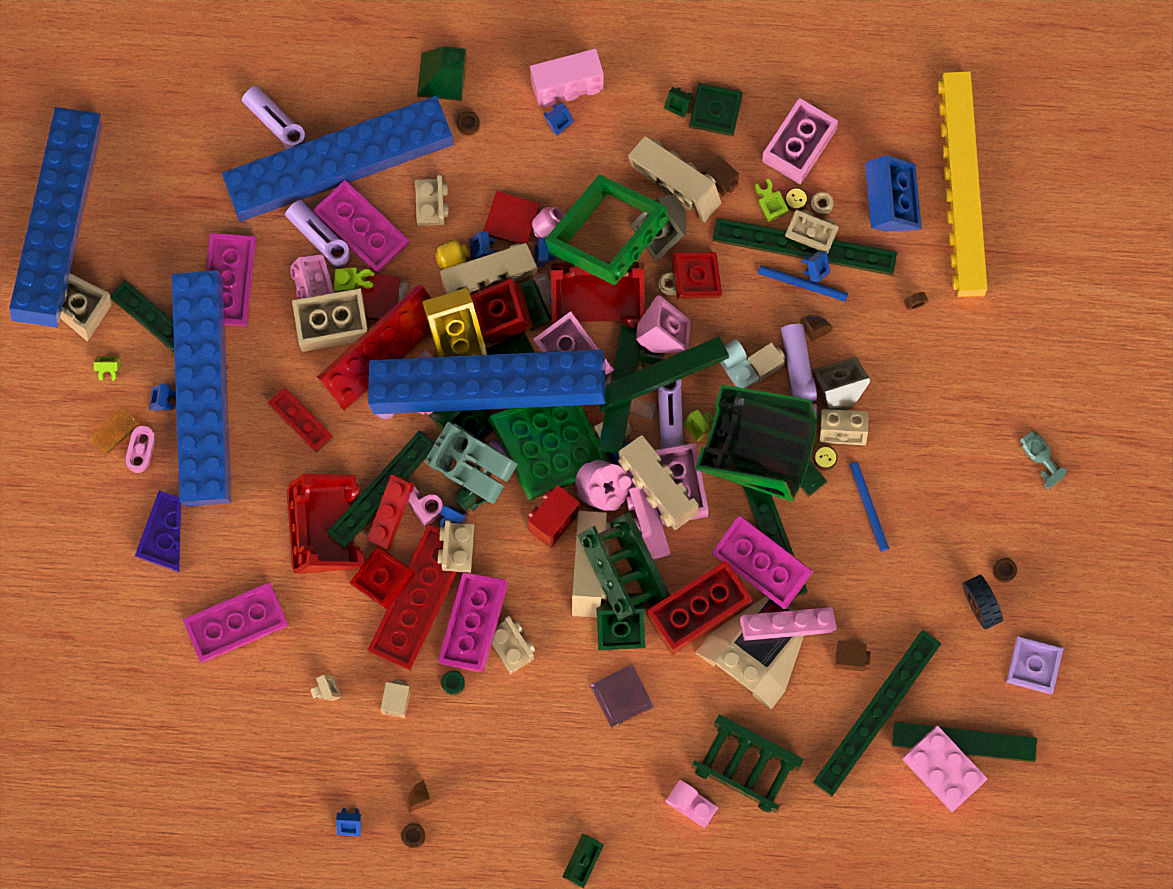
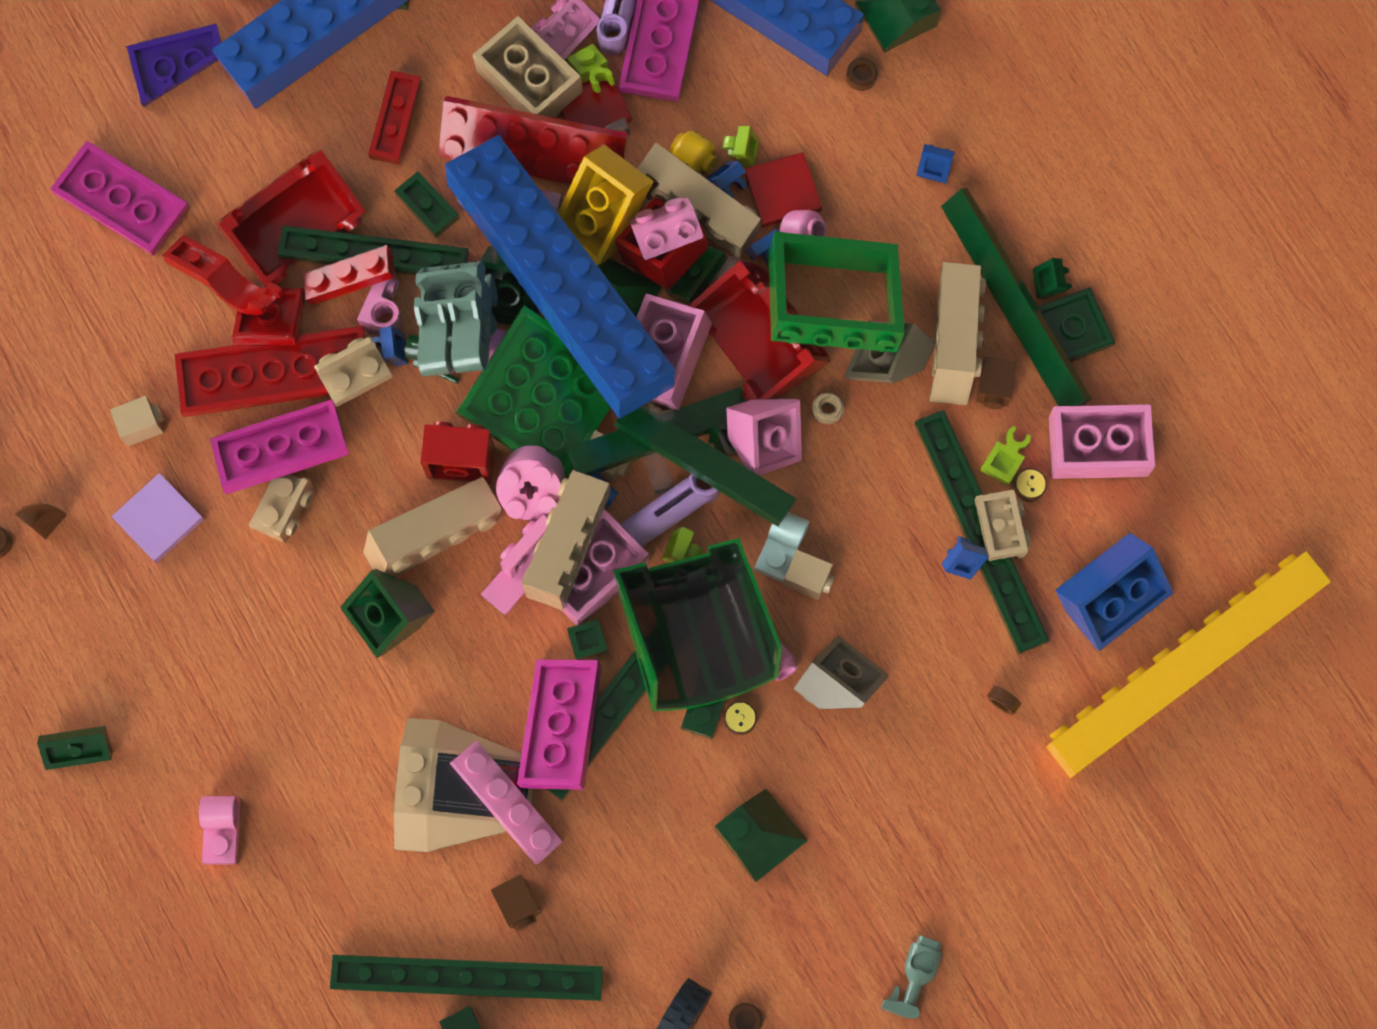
camera: 55 degrees right, 0 degrees up
(327, 688) = (104, 340): tan tile -> none
(338, 589) = (220, 276): none -> red piece
(372, 436) = (426, 204): none -> dark green plate
(430, 201) = (741, 93): tan bracket -> none
(453, 683) = (199, 471): dark green tile -> none
(466, 725) = (157, 518): none -> lavender tile
(468, 224) = (743, 146): none -> lime tile
(499, 299) = (666, 227): none -> bright pink bracket
(567, 78) = (987, 138): bright pink brick -> none
(621, 696) = (301, 667): tile -> none
(639, 559) = (475, 573): dark green fence -> none
(678, 131) = (1015, 300): none -> dark green tile
(696, 275) = (857, 430): red tile -> none
(699, 607) = (457, 686): red brick -> none
(720, 514) = (587, 640): none -> dark green tile
(766, 750) = (337, 877): dark green fence -> none
(798, 363) = (812, 630): lavender piece -> none
(802, 283) = (934, 557): blue bar -> none
(815, 326) = (891, 605): reddish brown brick -> none
(822, 196) = (1051, 509): tan plate -> none
(844, 427) = (789, 713): tan bracket -> none
(869, 507) = (715, 807): blue bar -> none
(902, 492) = (760, 834): none -> dark green slope

